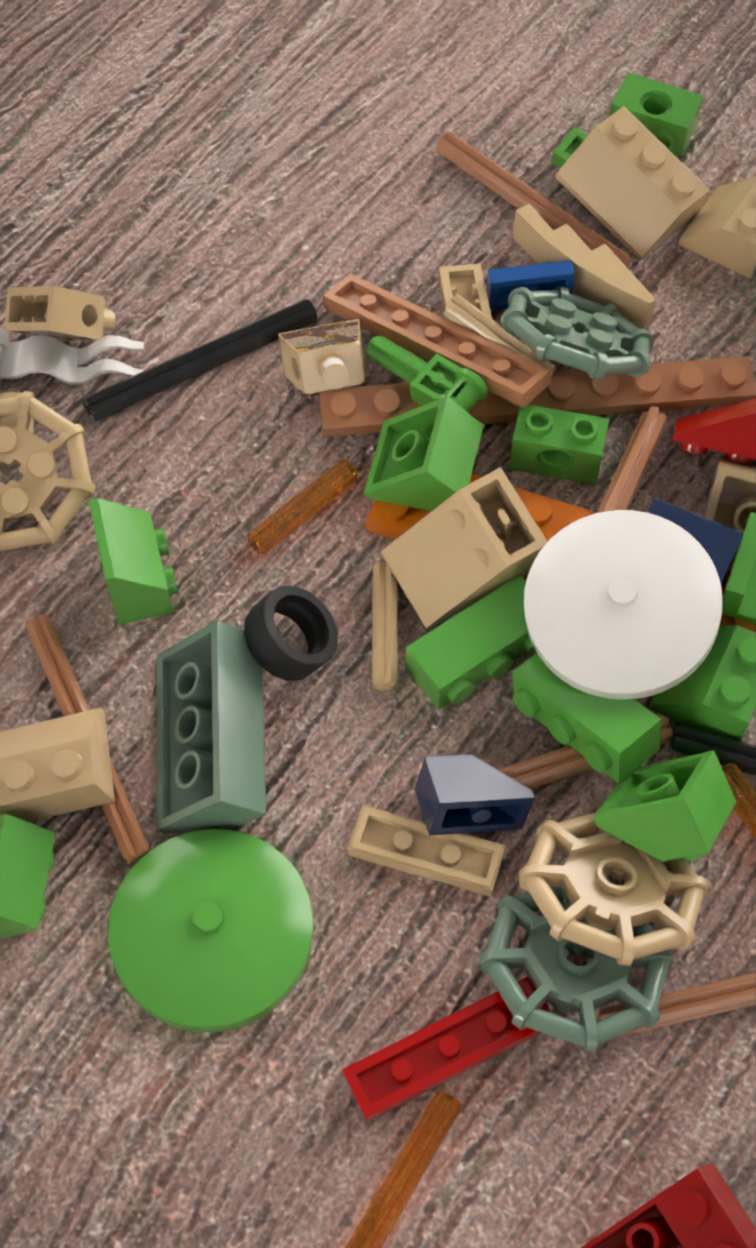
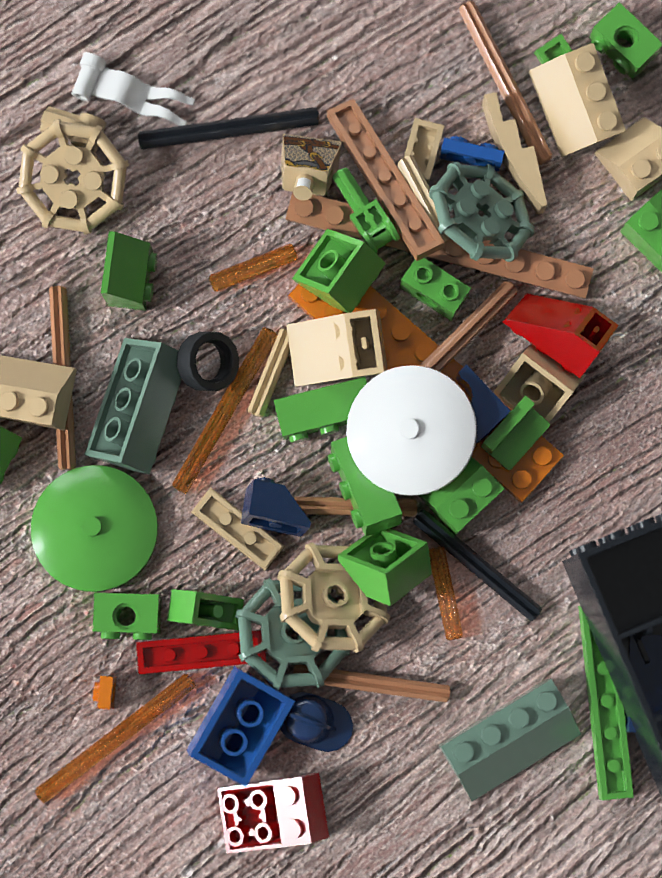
camera: 20 degrees right, 20 degrees up
(69, 313) = (140, 65): tan torso -> none
(322, 1168) = (105, 692): none -> orange plate
(328, 1007) = (108, 609): none -> bright green brick
(338, 702) = (224, 410): none -> clear orange axle
(426, 979) = (204, 609): none -> bright green slope
(560, 1134) = (240, 726): none -> blue slope
(666, 1090) = (317, 722): none -> dark blue piece

